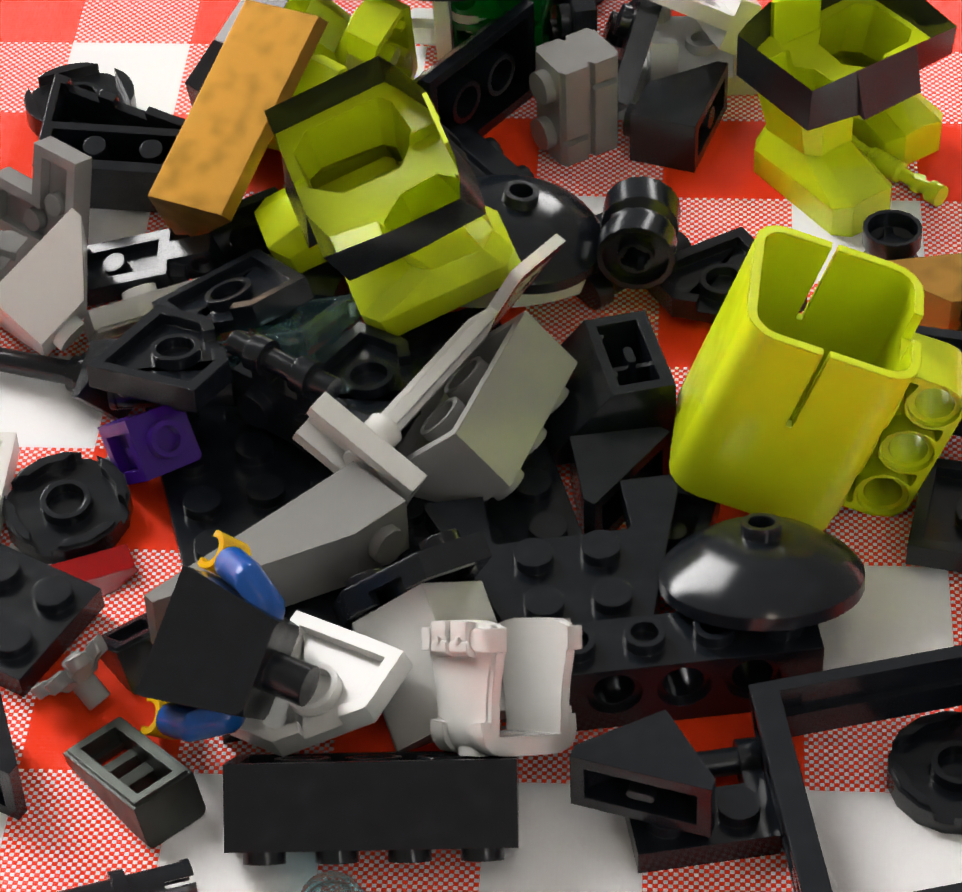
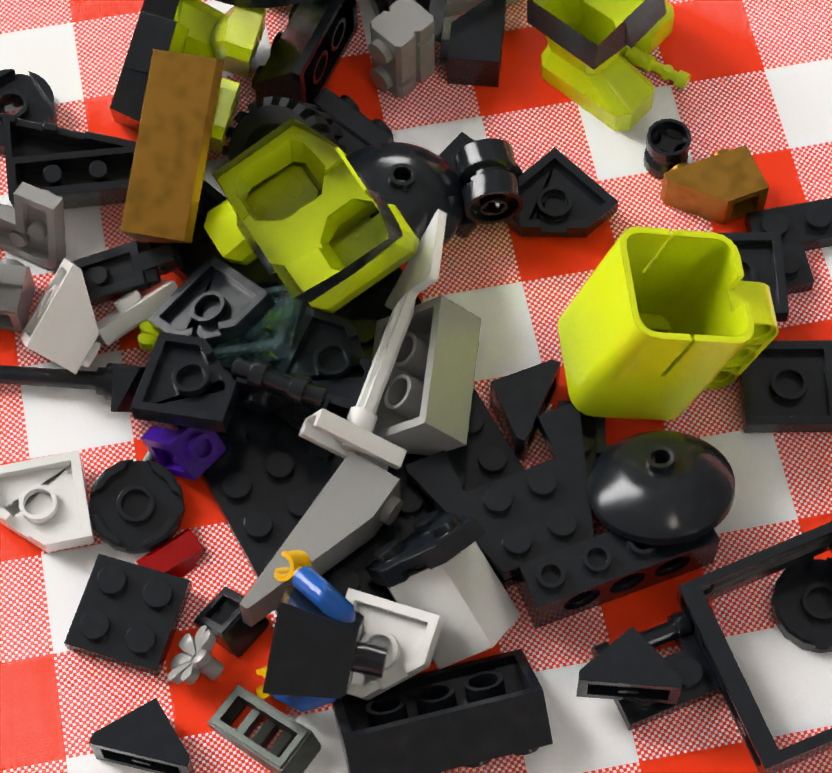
camera: 15 degrees left, 20 degrees up
(536, 671) = (517, 626): white piece -> none
(616, 383) = (514, 325): black slope -> none

